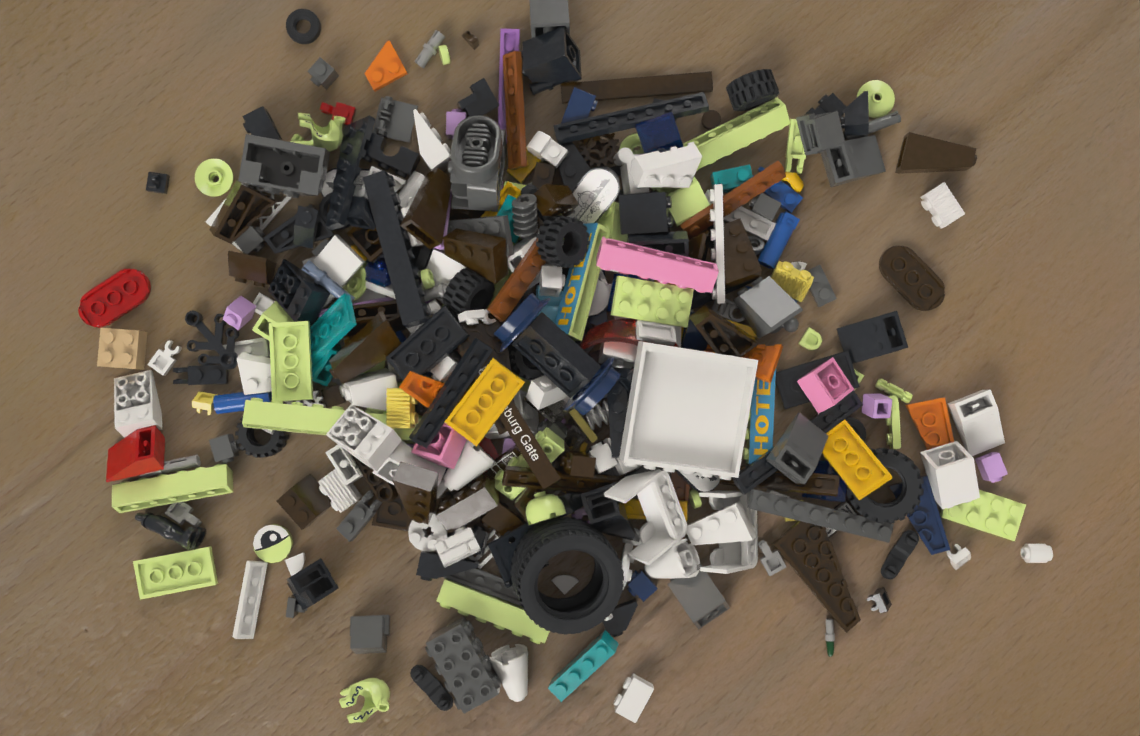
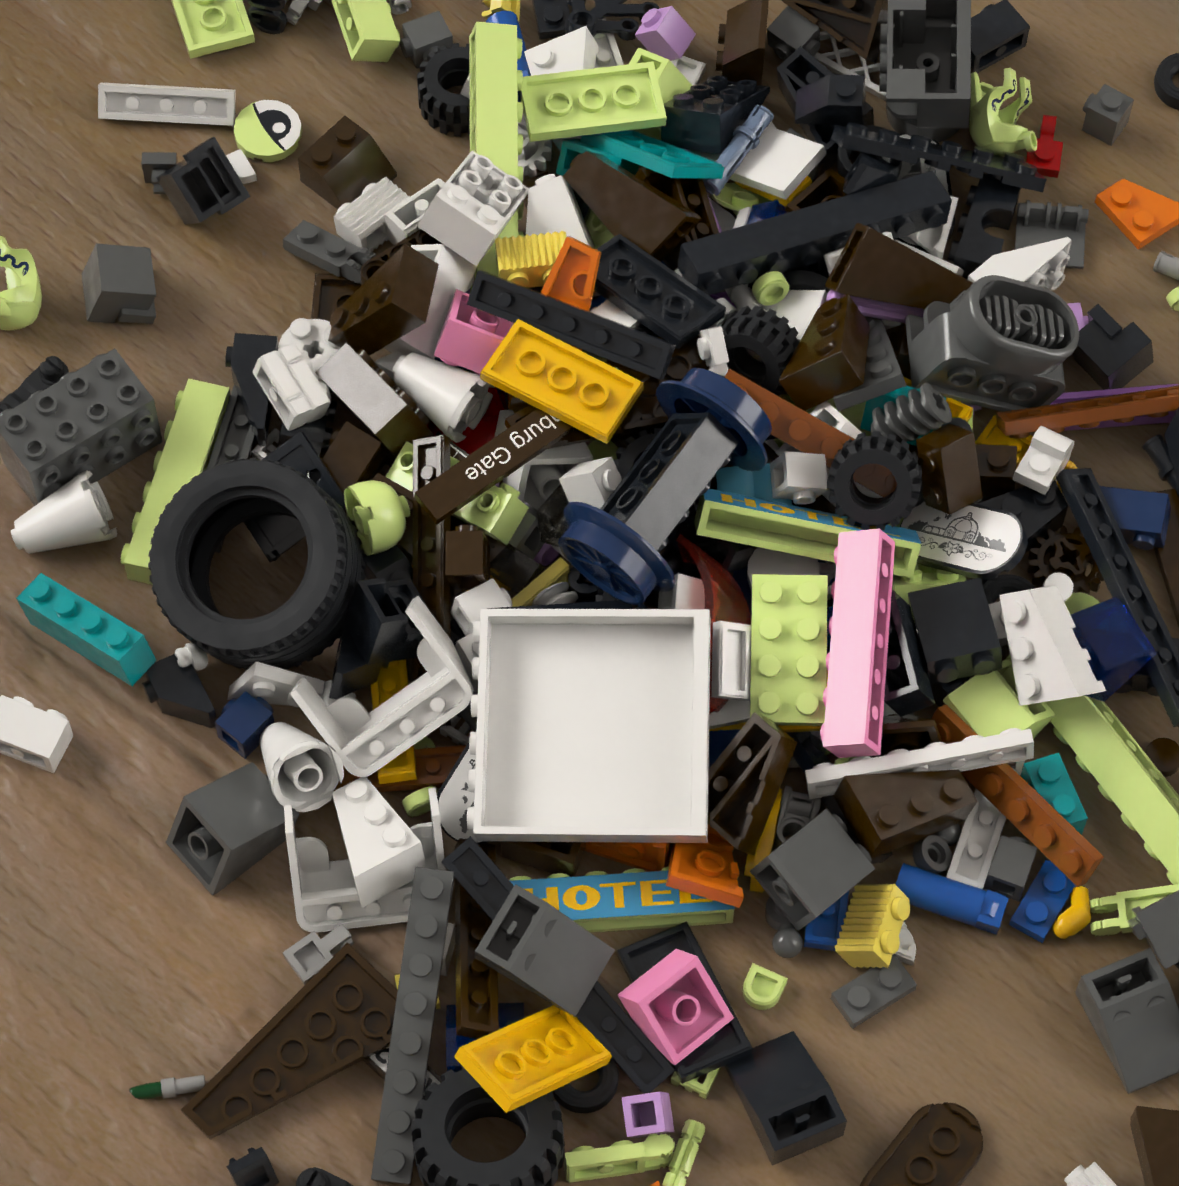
camera: 80 degrees right, 25 degrees down
(564, 582) = (237, 596): white tile -> none

